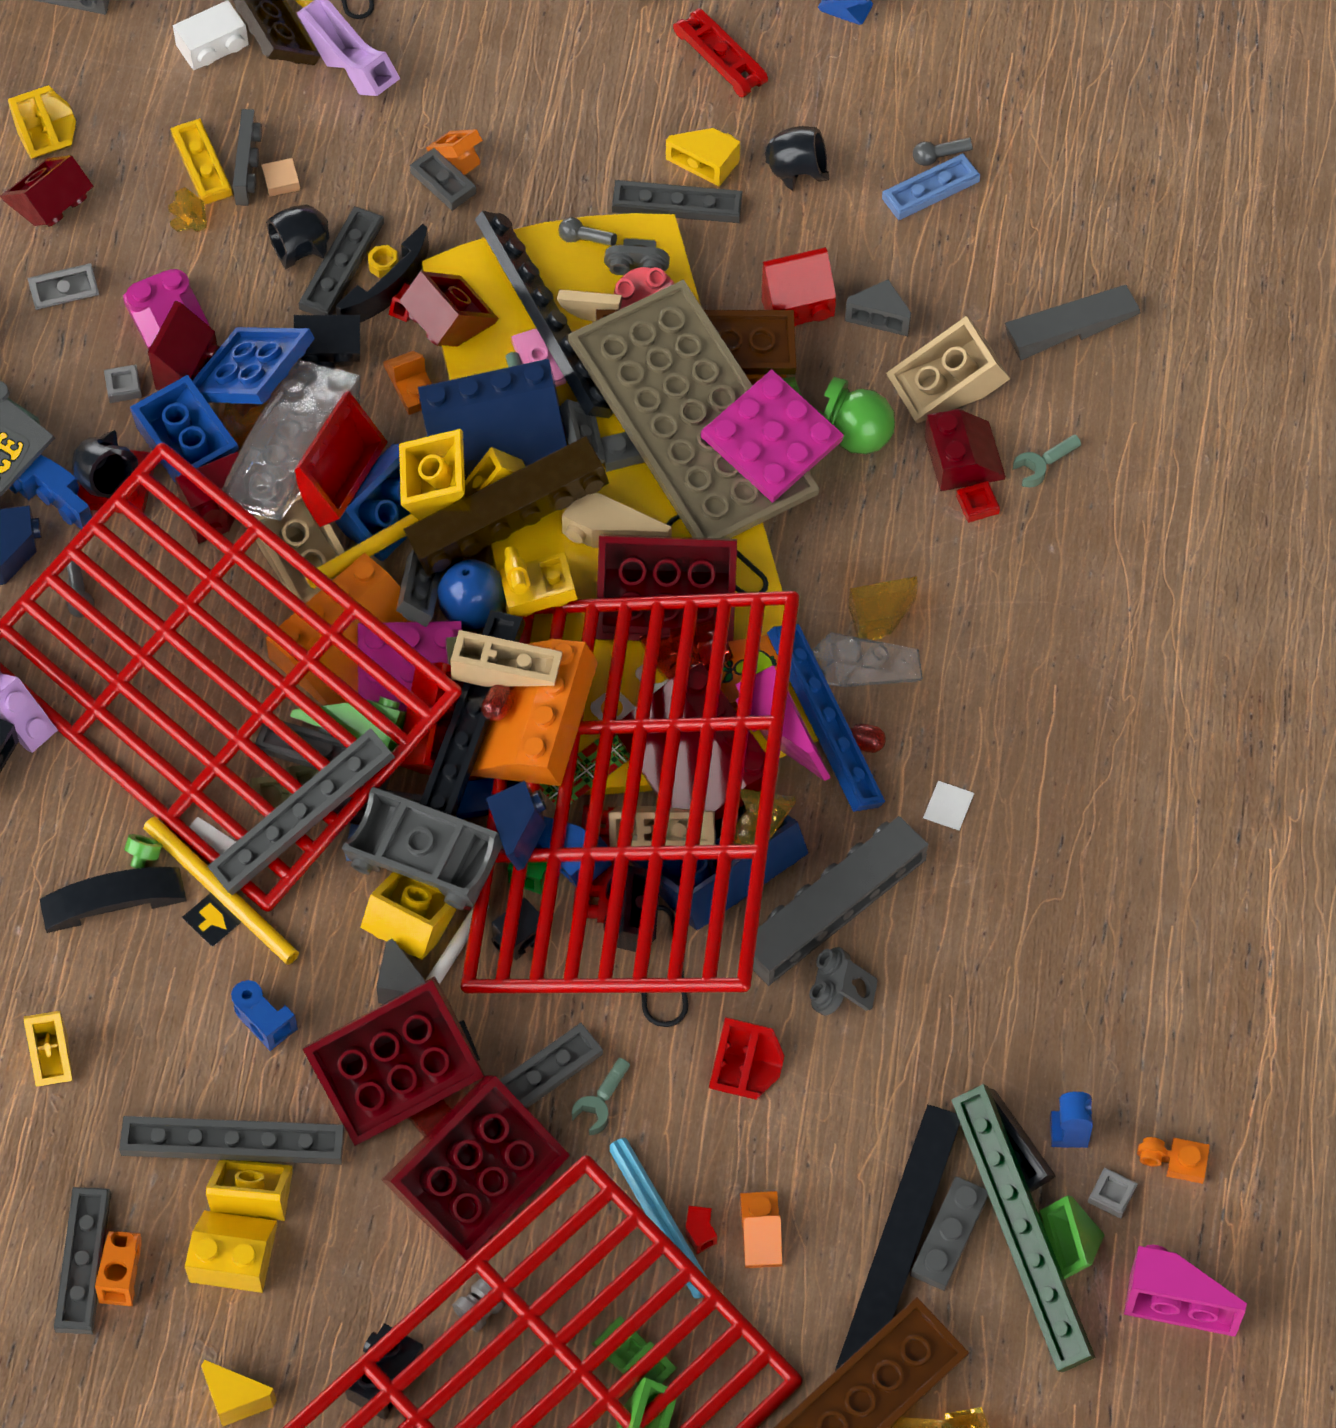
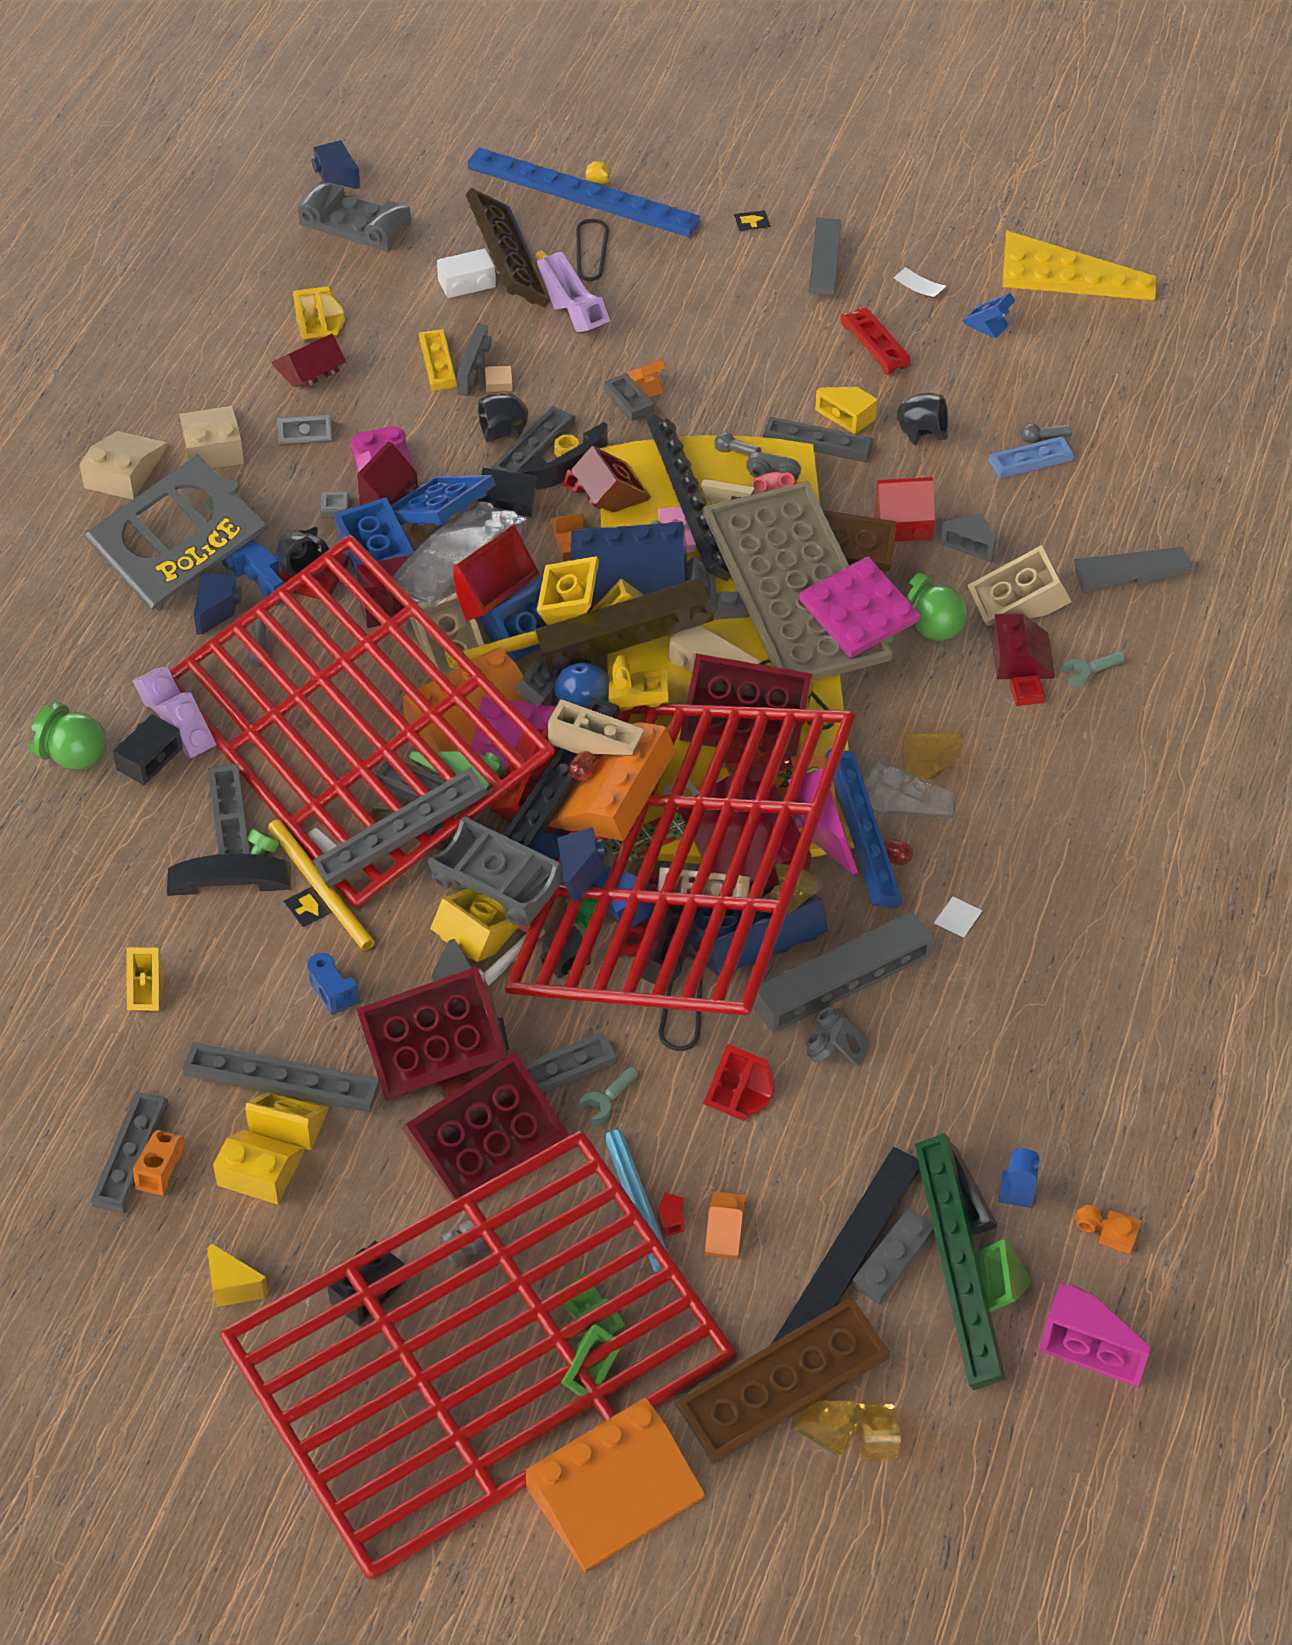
camera: 10 degrees right, 10 degrees down
(93, 816) = (228, 809): none -> dark grey slope
(188, 211) = (417, 391): clear yellow tile -> none
(1112, 1193) = (1046, 1247): light grey tile -> none

